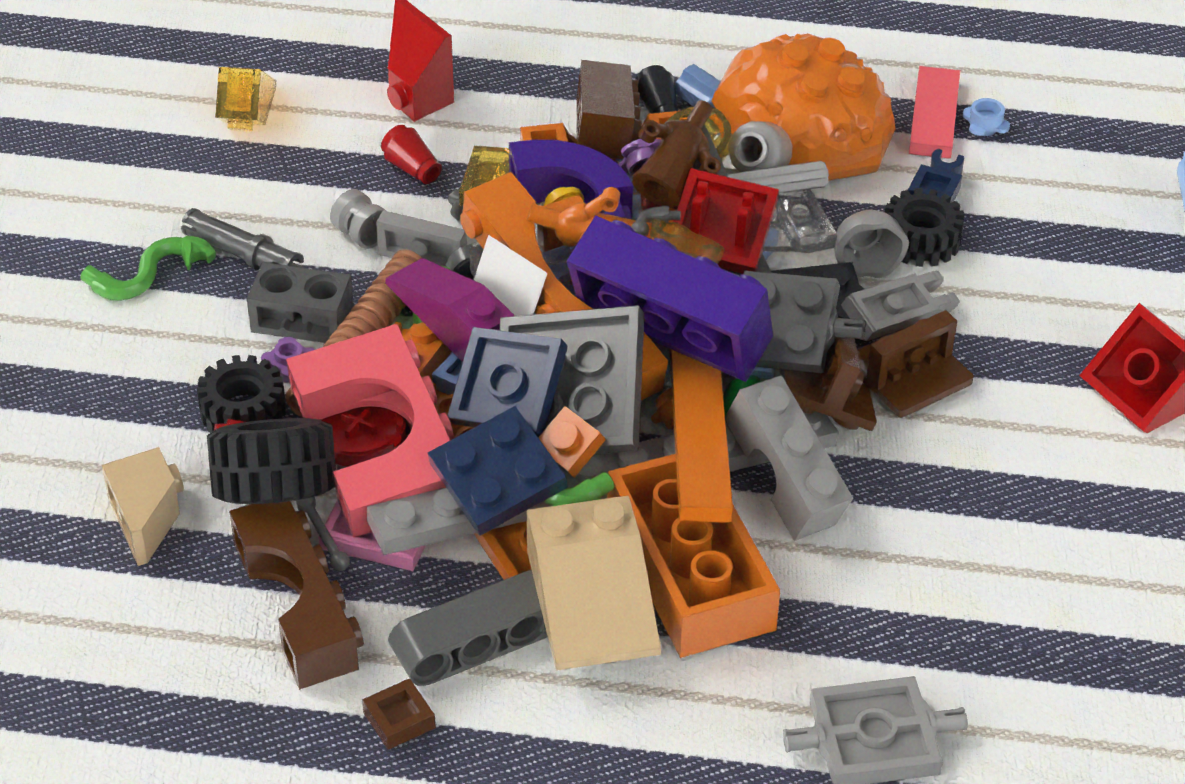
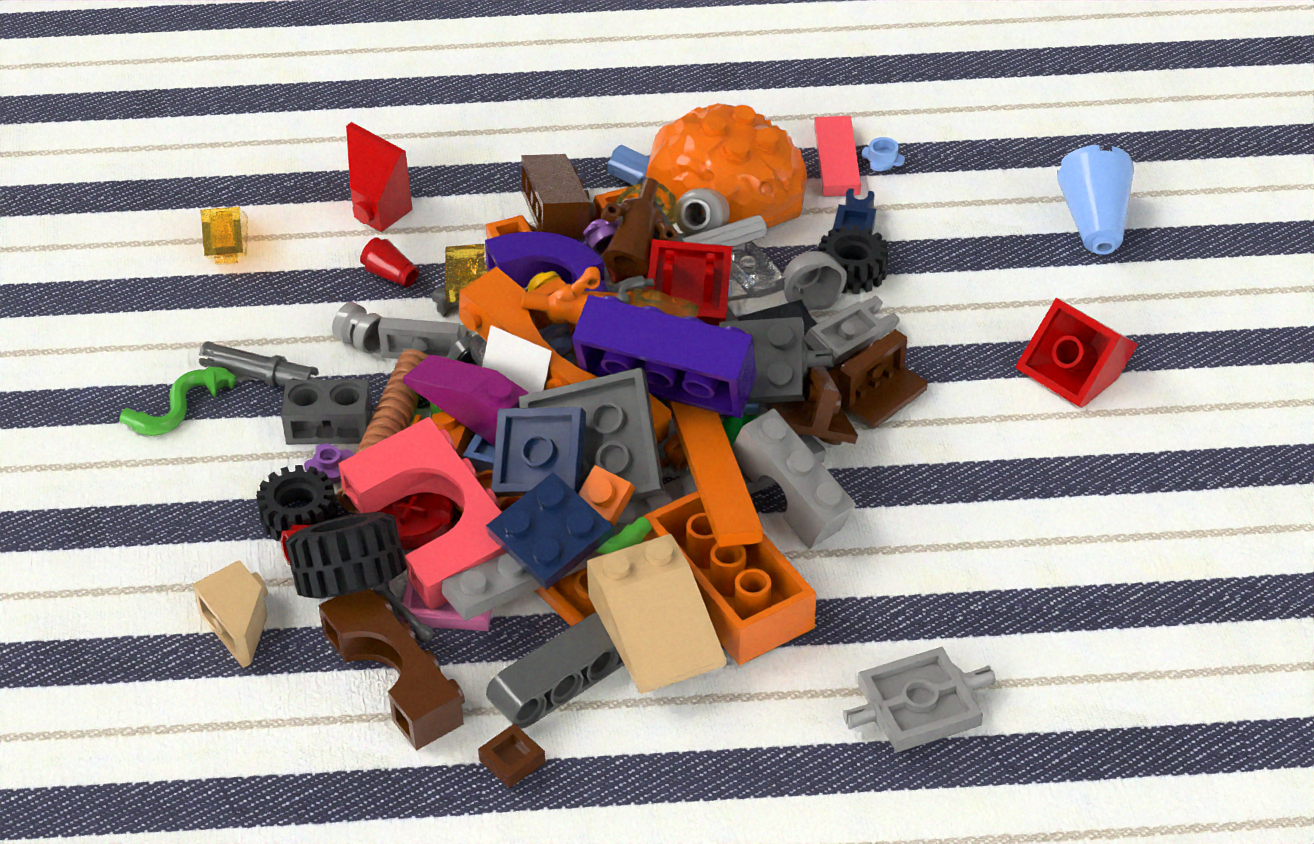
camera: 10 degrees left, 0 degrees up
(657, 89) = (594, 172): black cone -> none

